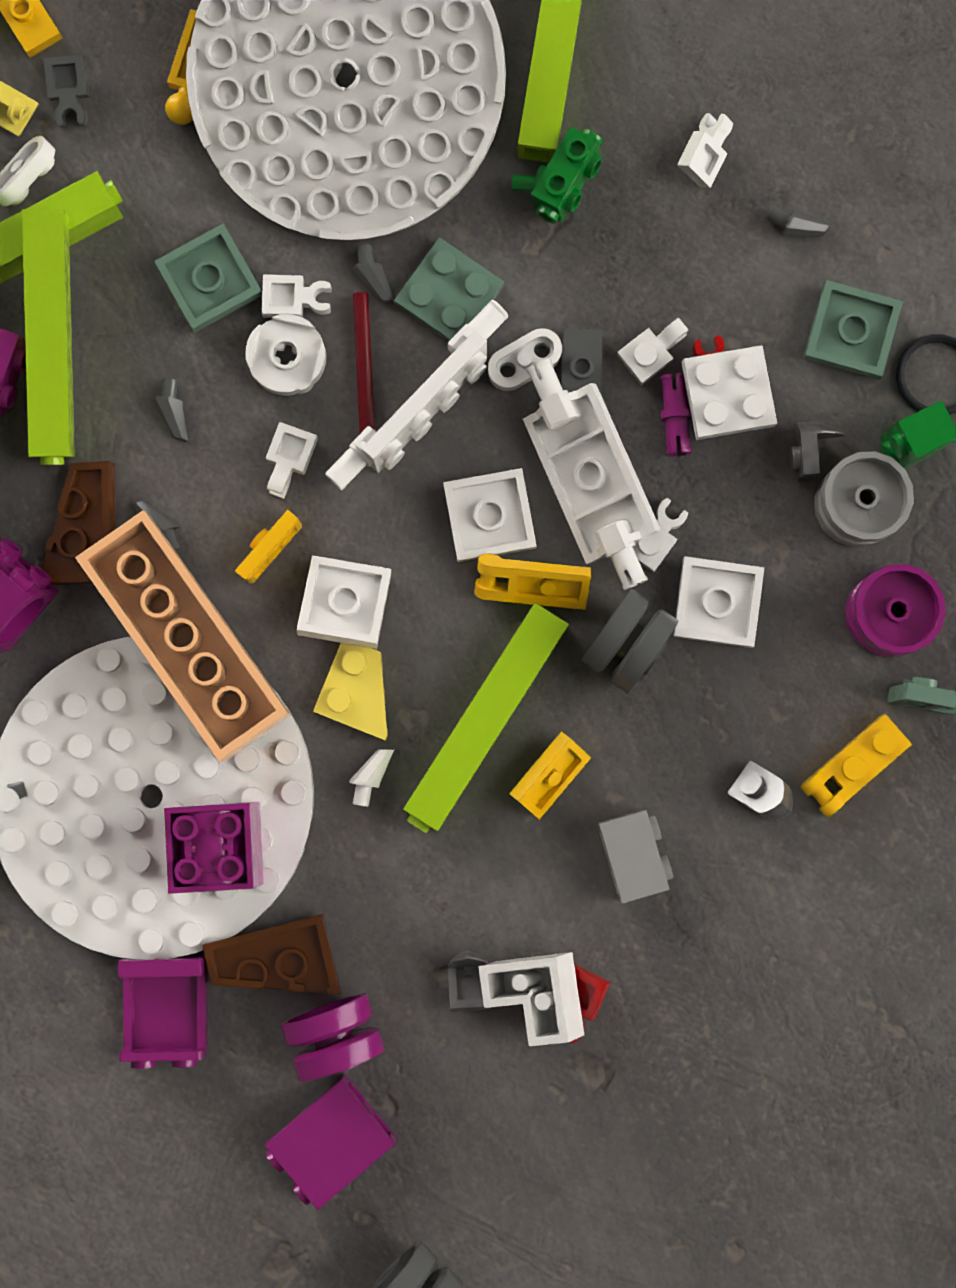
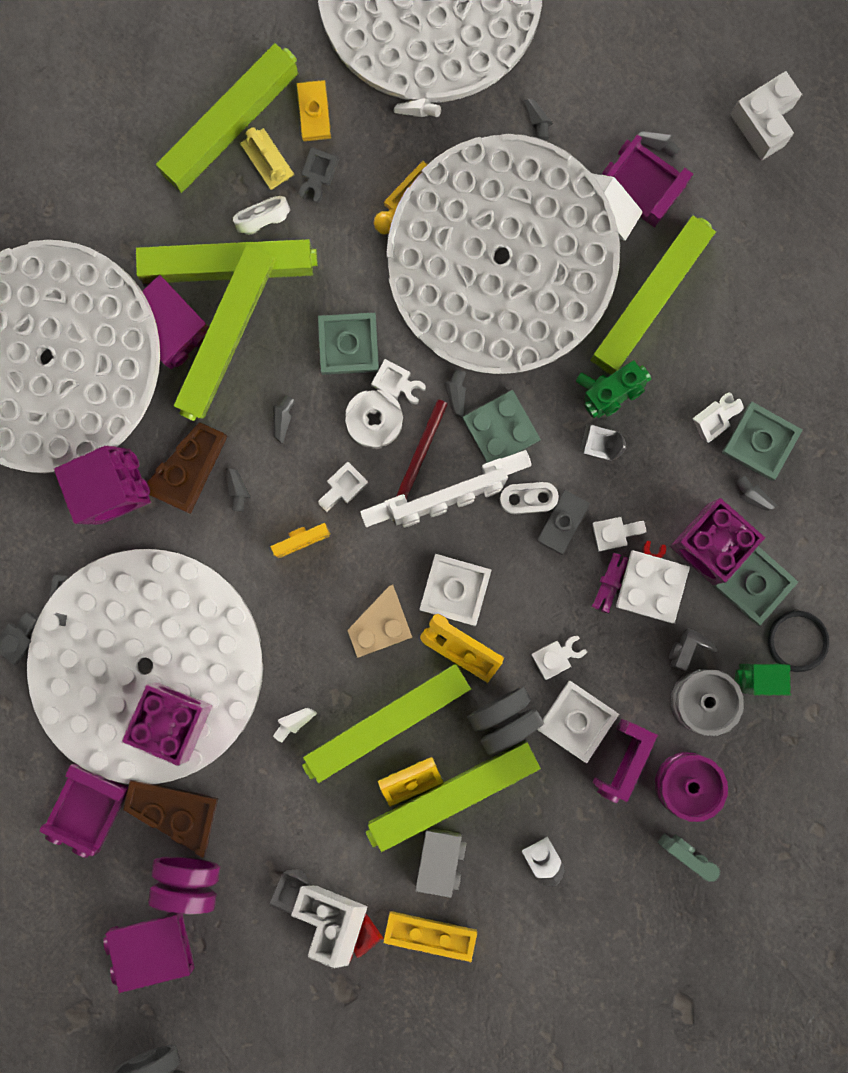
camera: 25 degrees right, 0 degrees up
(183, 636) = (215, 574): light nougat brick -> none
(344, 602) = (332, 600): white plate -> none
(355, 690) = (311, 661): light yellow wing -> none
(418, 604) = (380, 625): none -> tan wing
(582, 248) = (602, 443): none -> flat silver plate
(590, 473) = (534, 596): white plate -> none
(610, 767) = (452, 796): none -> lime brick
(667, 952) = (430, 936): none -> yellow plate
(775, 153) = (762, 441): none -> sand green plate
(781, 299) = (717, 542): none -> magenta brick
(809, 617) = (630, 765): none -> magenta panel
(856, 764) = (616, 874): yellow plate -> none

